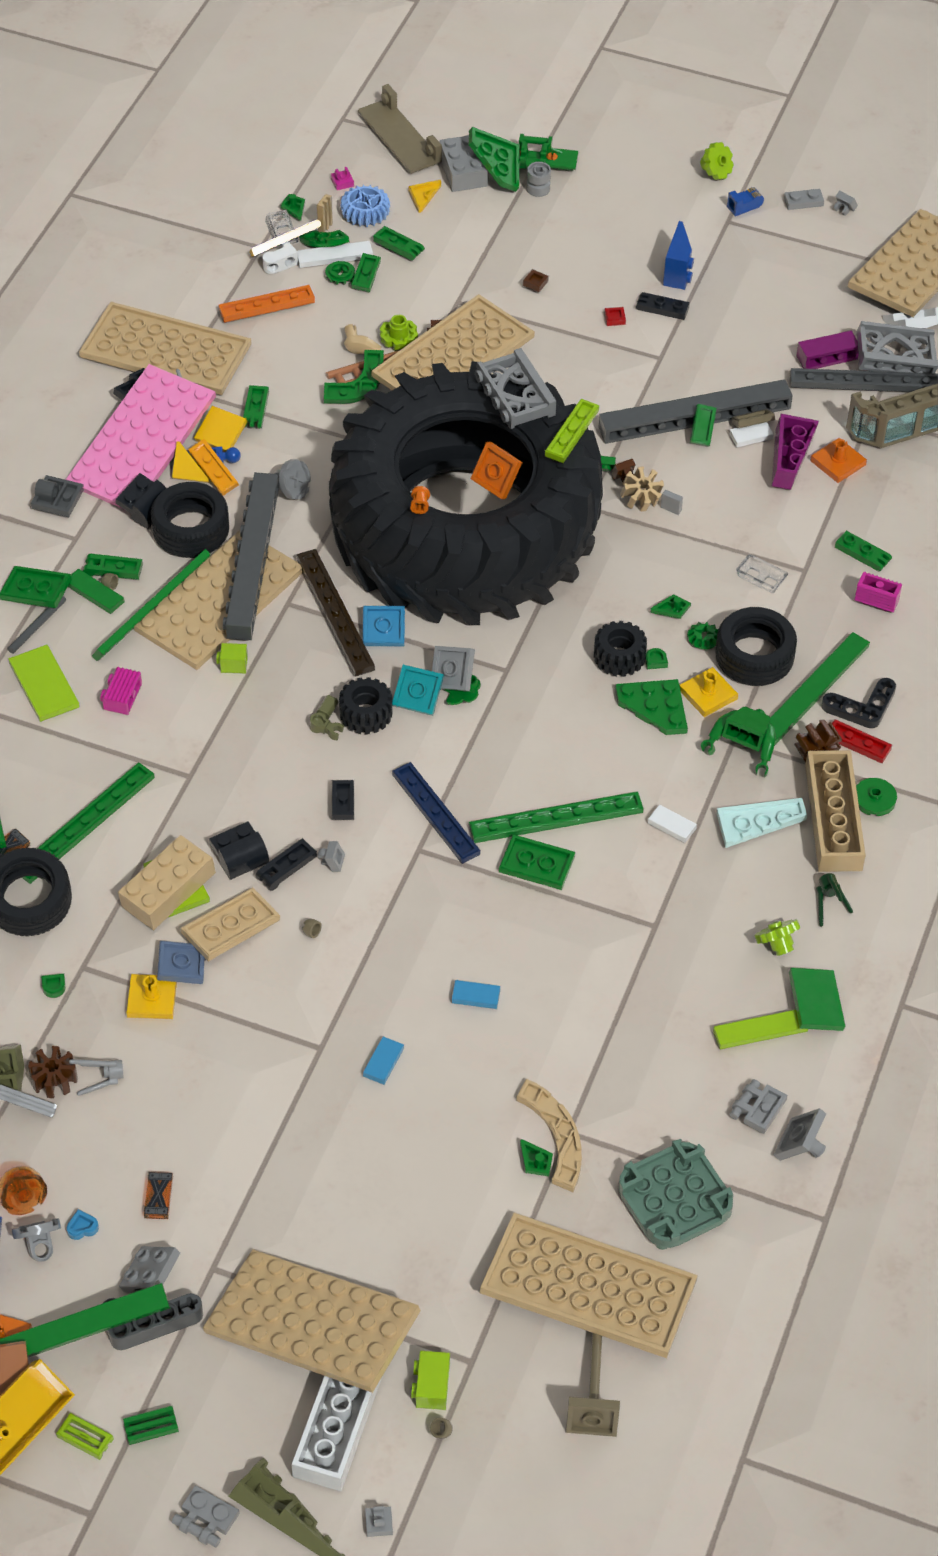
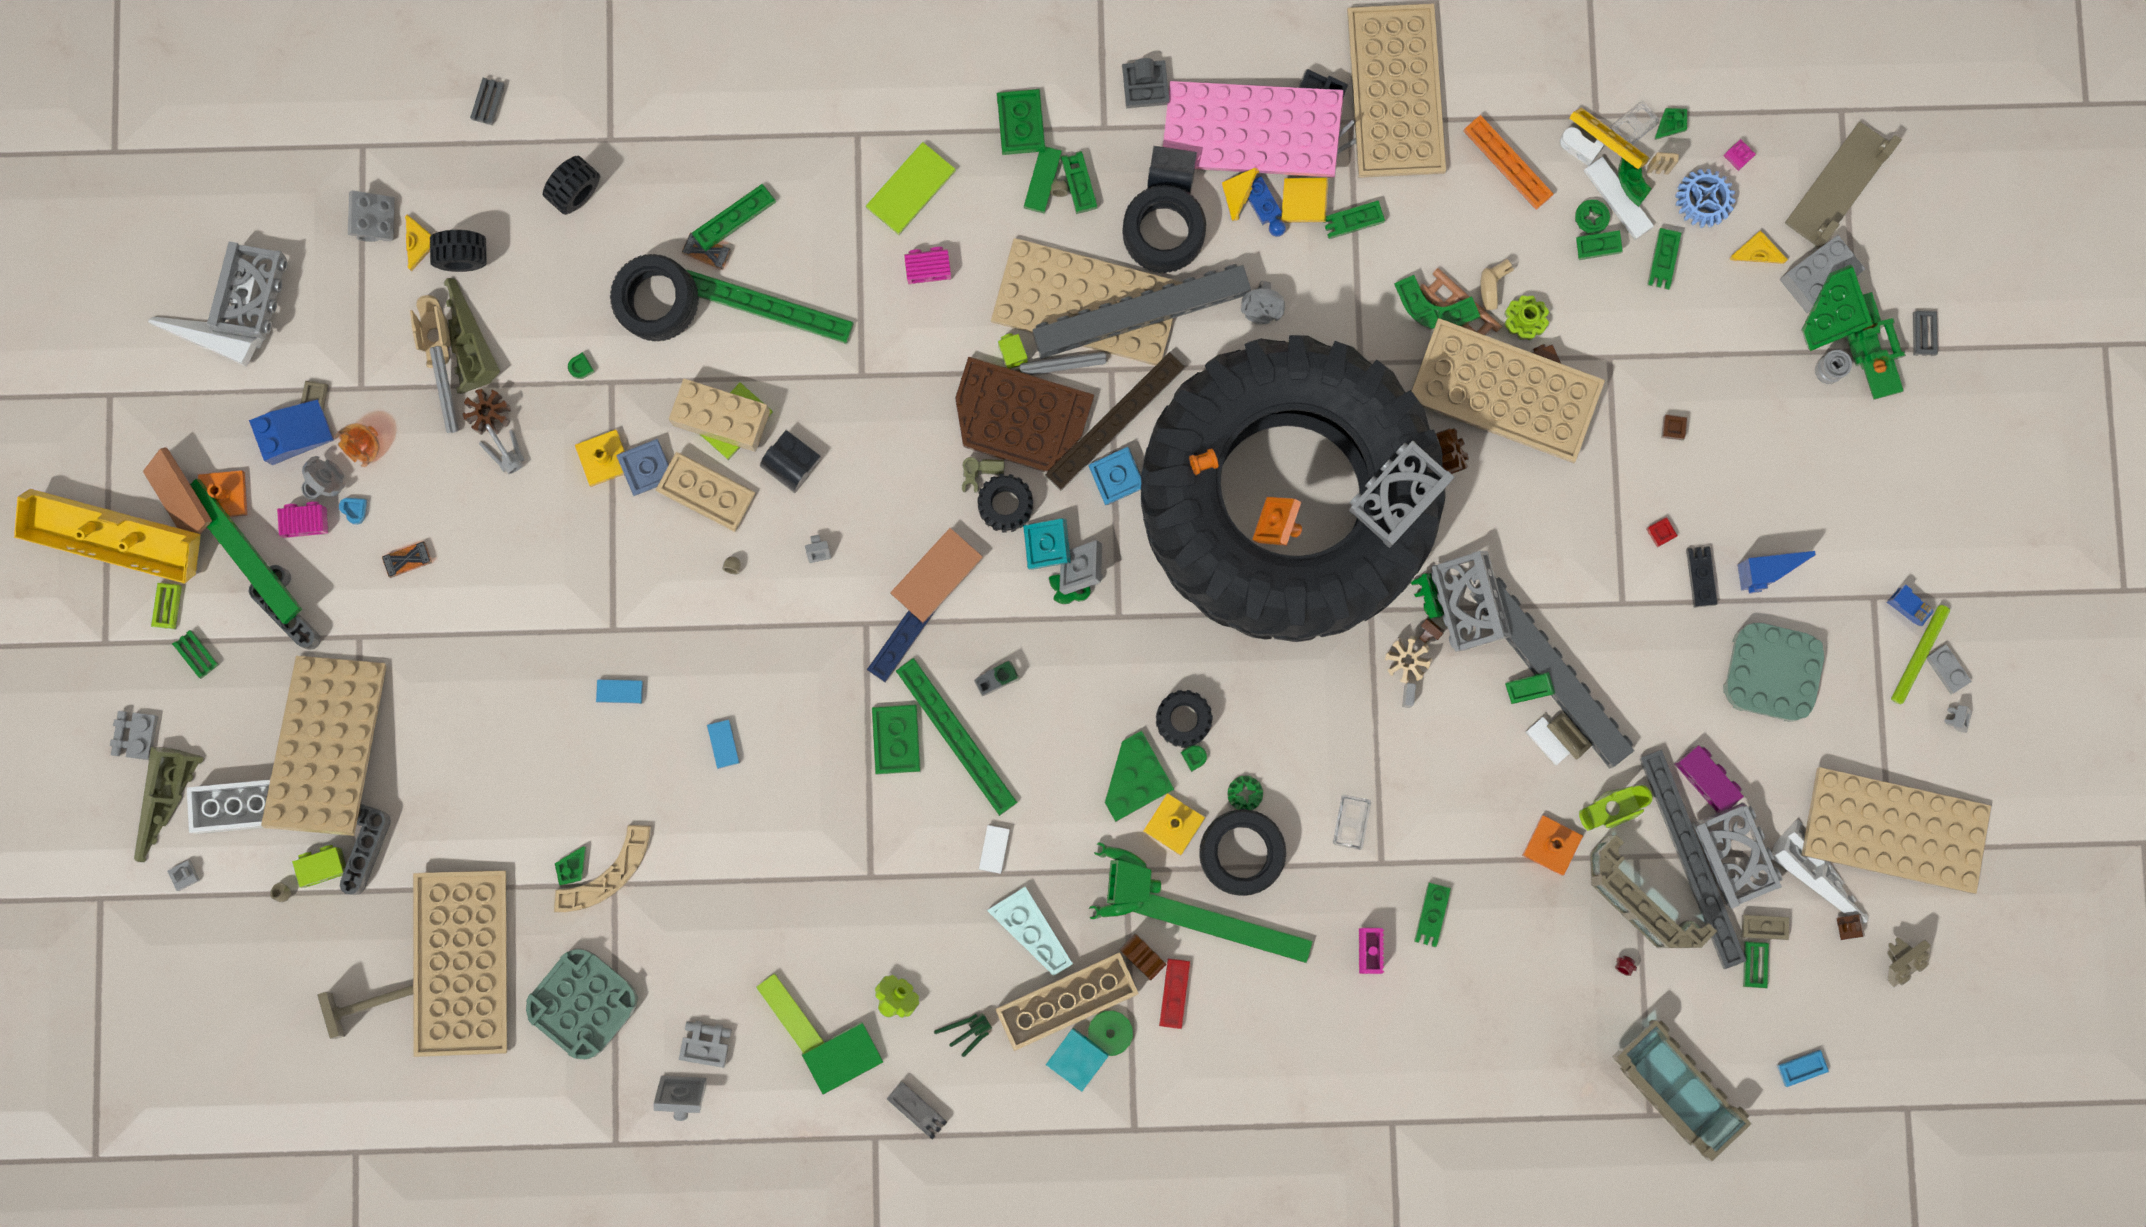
camera: 65 degrees right, 30 degrees up
(34, 627) = (970, 144): dark grey bar -> none
(68, 1270) = (302, 520): none -> dark pink brick
(149, 606) = (1045, 243): green tile -> none
(149, 1268) = (327, 588): light grey plate -> none
(213, 467) = (1247, 217): light orange tile -> none
(263, 631) = (1063, 363): none -> light grey axle
(286, 864) = (794, 511): black plate -> none
(291, 674) = (1019, 415): none -> reddish brown plate
(342, 799) = (888, 530): black plate -> none
(403, 776) = (936, 575): none -> nougat tile
(442, 1330) = (360, 849): none -> dark grey beam
(519, 765) = (996, 678): none -> leg
(539, 129) = (1916, 333): none -> dark grey tile
(572, 430) = (1372, 574): lime tile -> none
(638, 420) = (1495, 620): none -> light grey fence
(672, 607) = (1268, 748): green piece -> none
(717, 161) = (1955, 553): lime plant -> none
(759, 287) = (1774, 672): none -> sand green plate
(786, 210) = (1920, 654): none -> lime axle
(791, 445) = (1540, 791): magenta wedge -> none
(822, 403) = (1627, 798): none -> lime piece
(868, 709) = (1220, 992): black beam -> none
(888, 959) = (916, 1109): none -> hinge
(890, 825) = (1077, 1059): none -> teal tile

